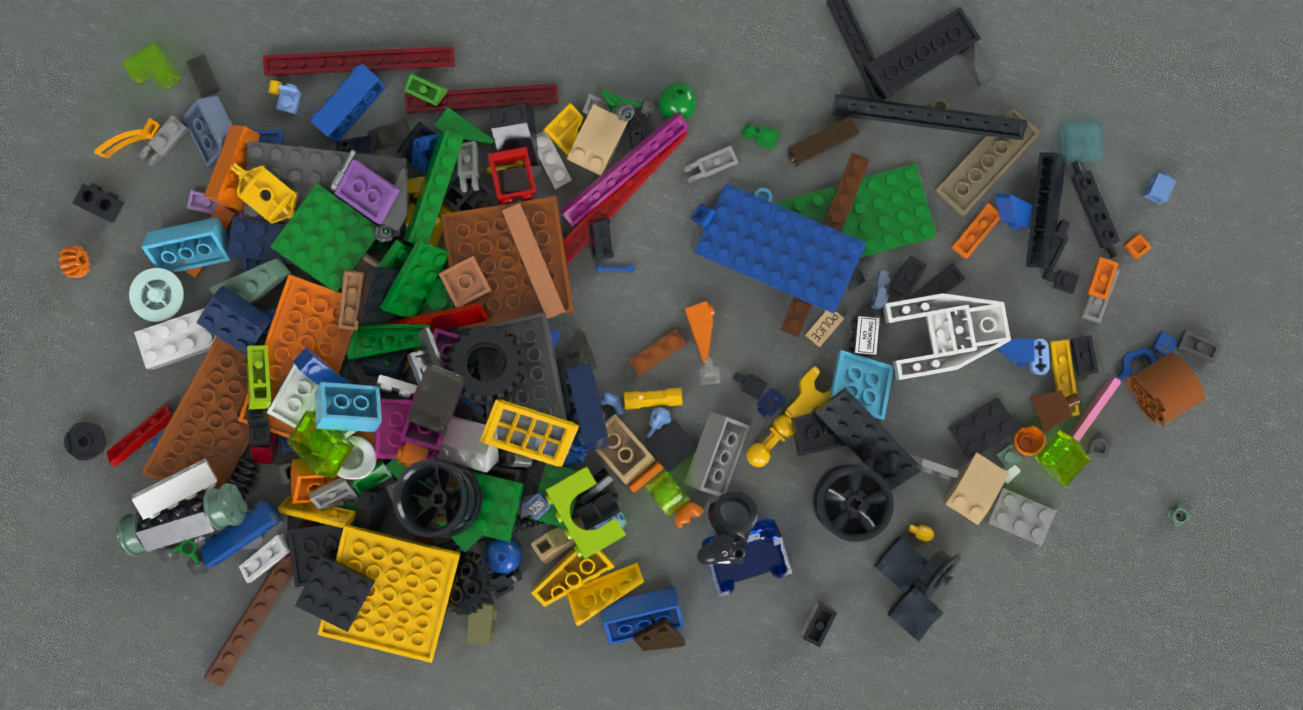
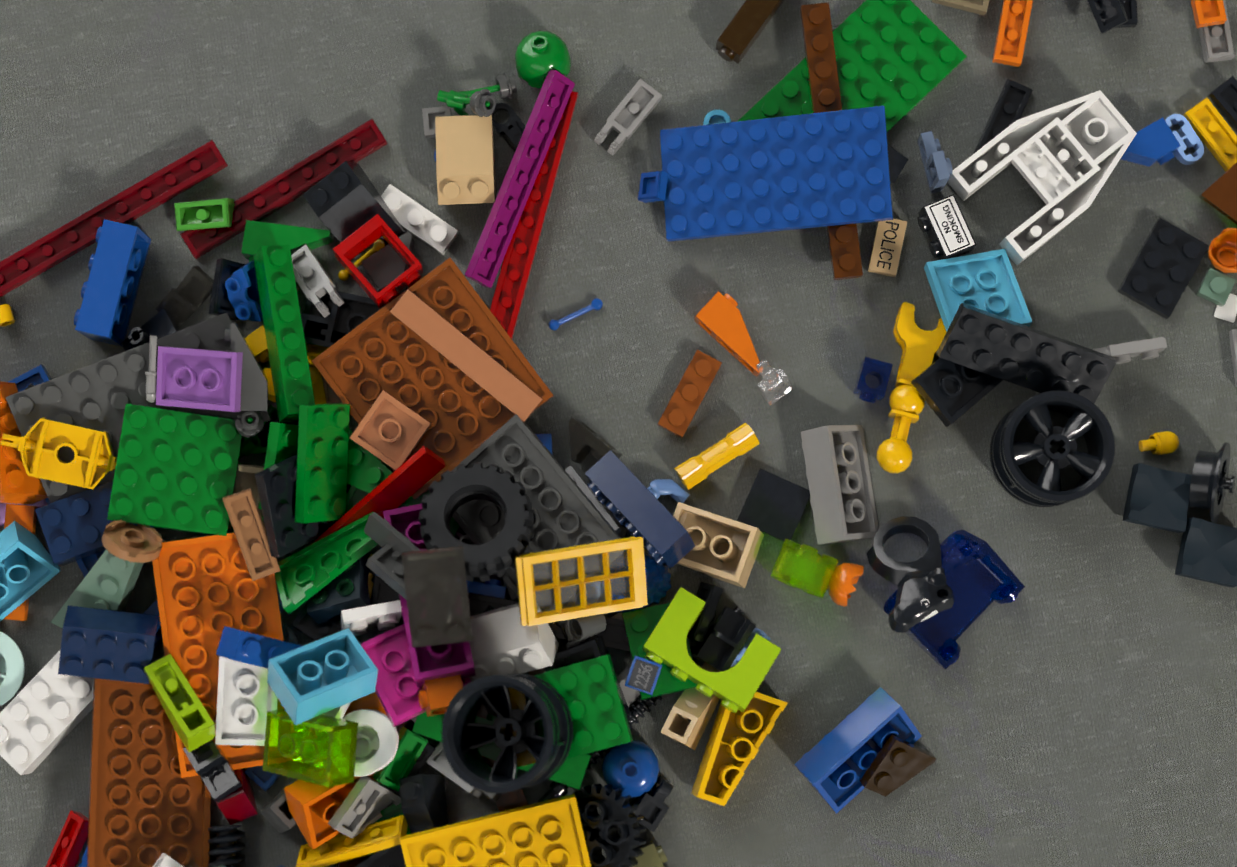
camera: 25 degrees left, 5 degrees down
(277, 268) = (132, 541): none -> medium nougat tile
(289, 99) = (29, 320): light blue bracket -> none
(564, 128) = (413, 170): yellow wing -> none
(600, 238) = (536, 284): black hinge -> none
(602, 592) = (790, 745): yellow wing -> none
(645, 476) = (763, 562): orange tile -> none
(658, 418) = (738, 476): medium blue piece -> none
(752, 385) = (836, 370): black plate -> none
(765, 137) = (679, 46): green plate -> none
(818, 624) = (1095, 633): black brick -> none
(908, 277) = (960, 125): black plate -> none
(976, 488) = (1198, 347): tan slope -> none
(1062, 280) = (1157, 27): black plate -> none

